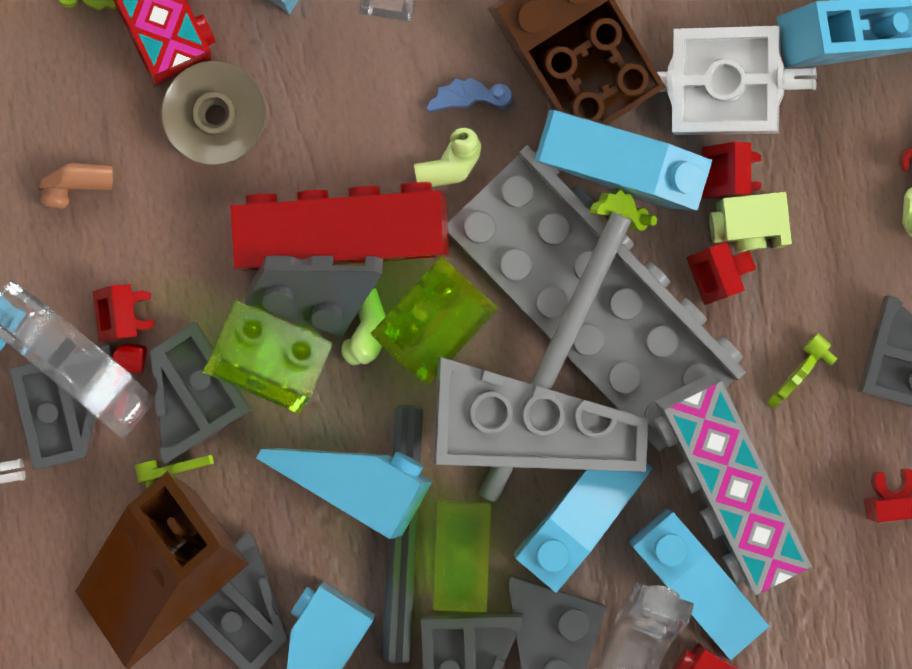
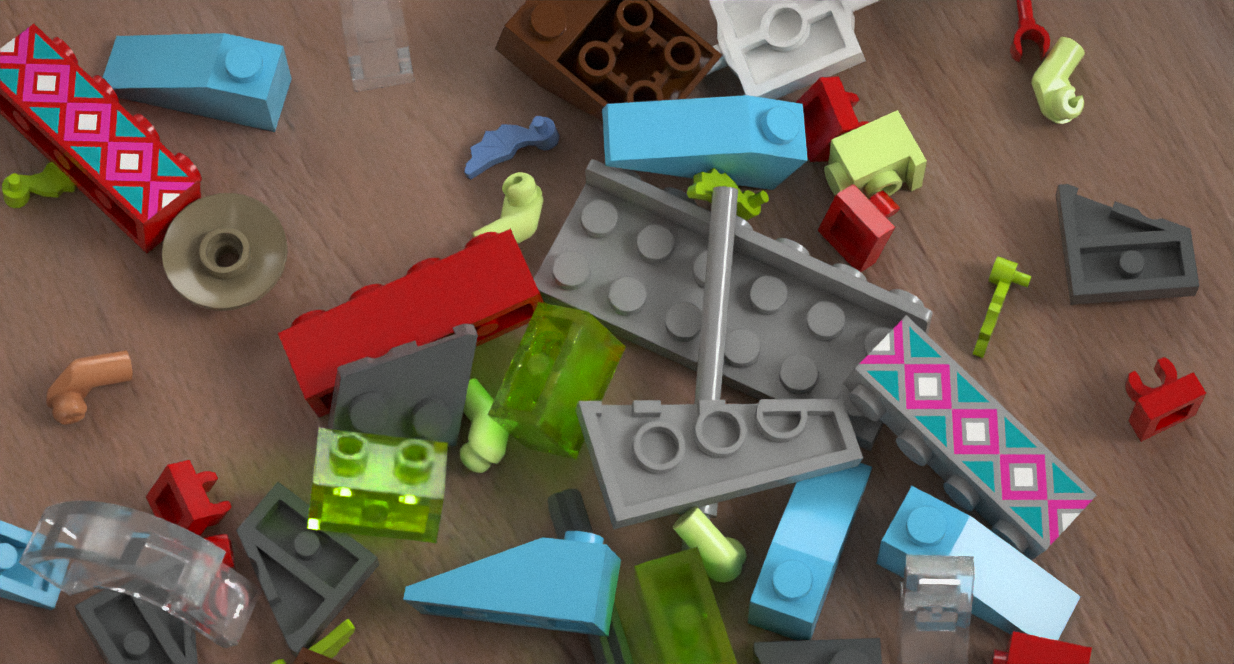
camera: 15 degrees left, 20 degrees down
(505, 498) = (720, 554): none -> yellowish green arm

